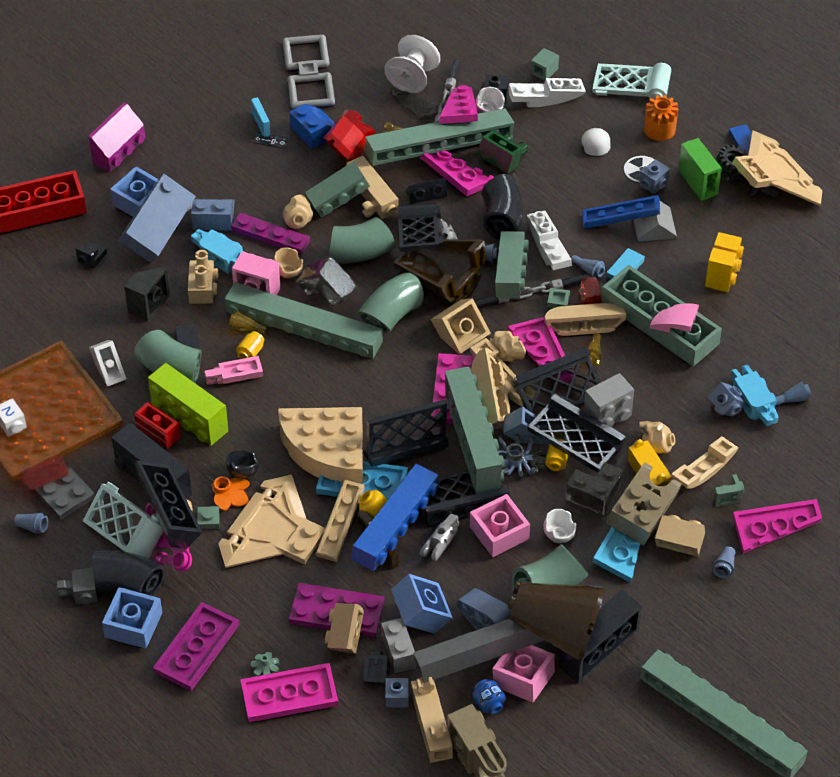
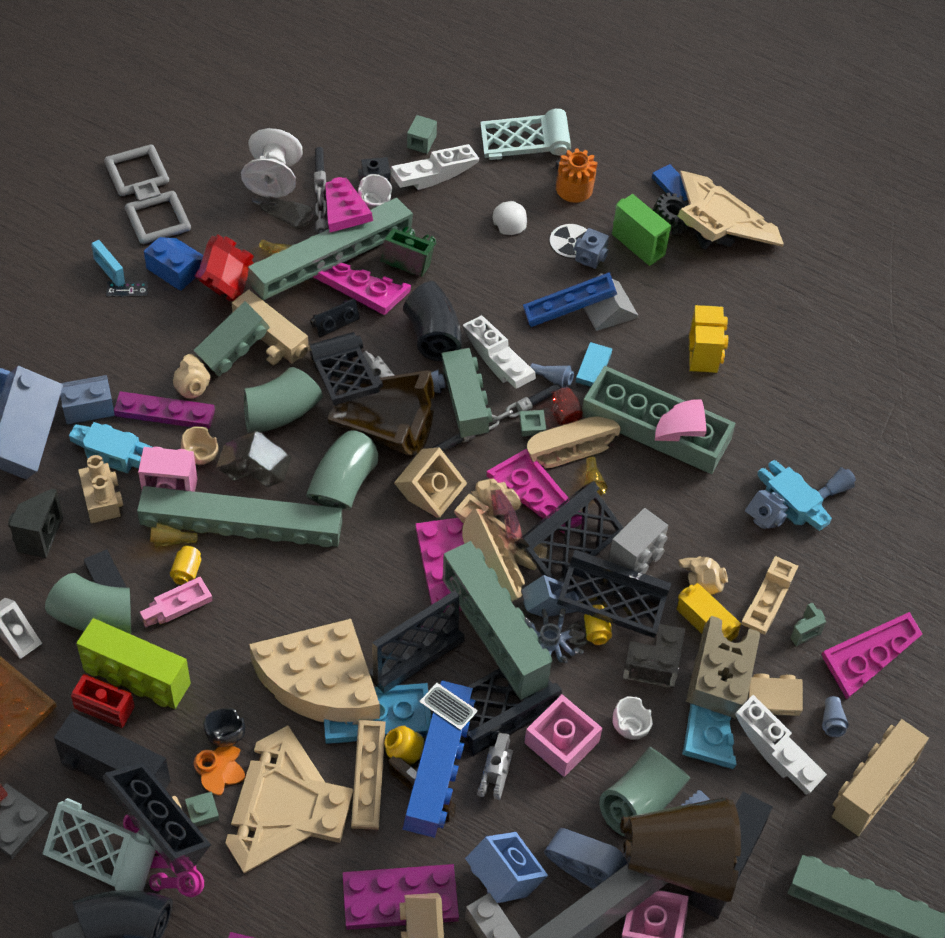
camera: 20 degrees left, 5 degrees up
(414, 481) = (448, 706): none -> sticker
(508, 352) = (502, 505): none -> clear pink slope
(667, 569) = (776, 747): none -> white slope
(742, 609) = (878, 776): none -> tan brick

